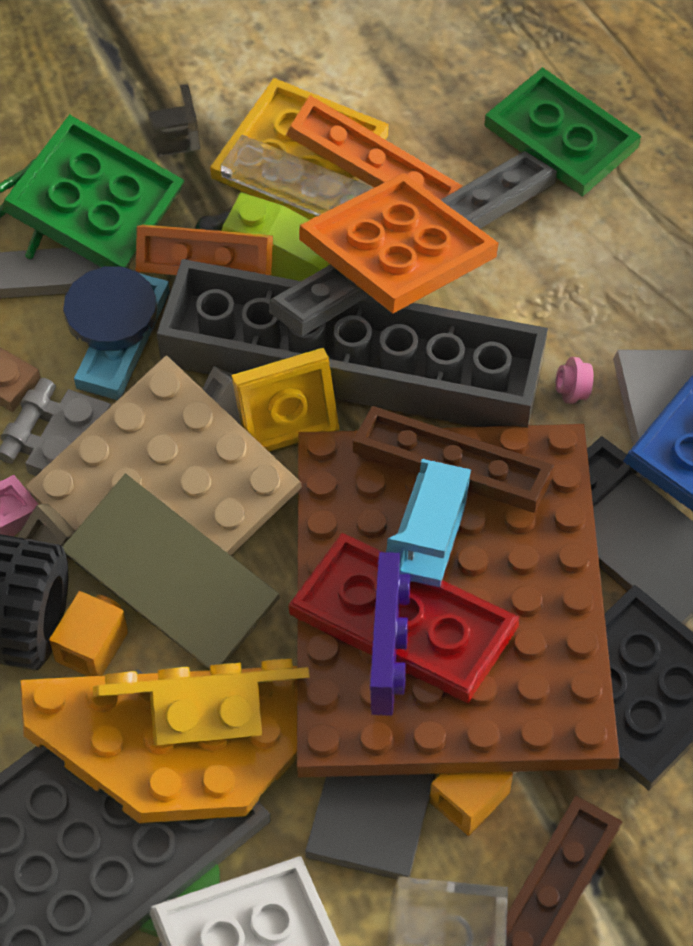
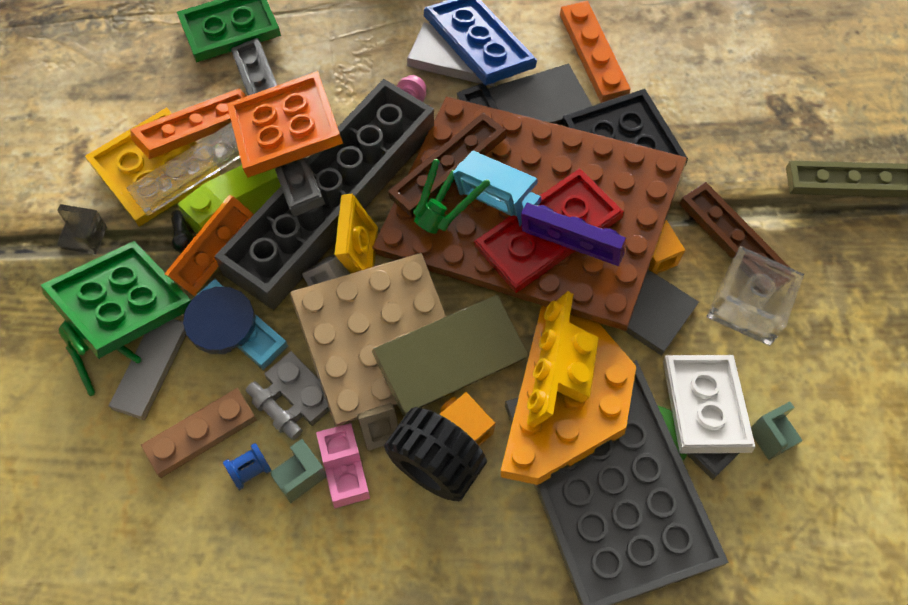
camera: 70 degrees left, 5 degrees up
(357, 467) = (432, 215): none -> green plant

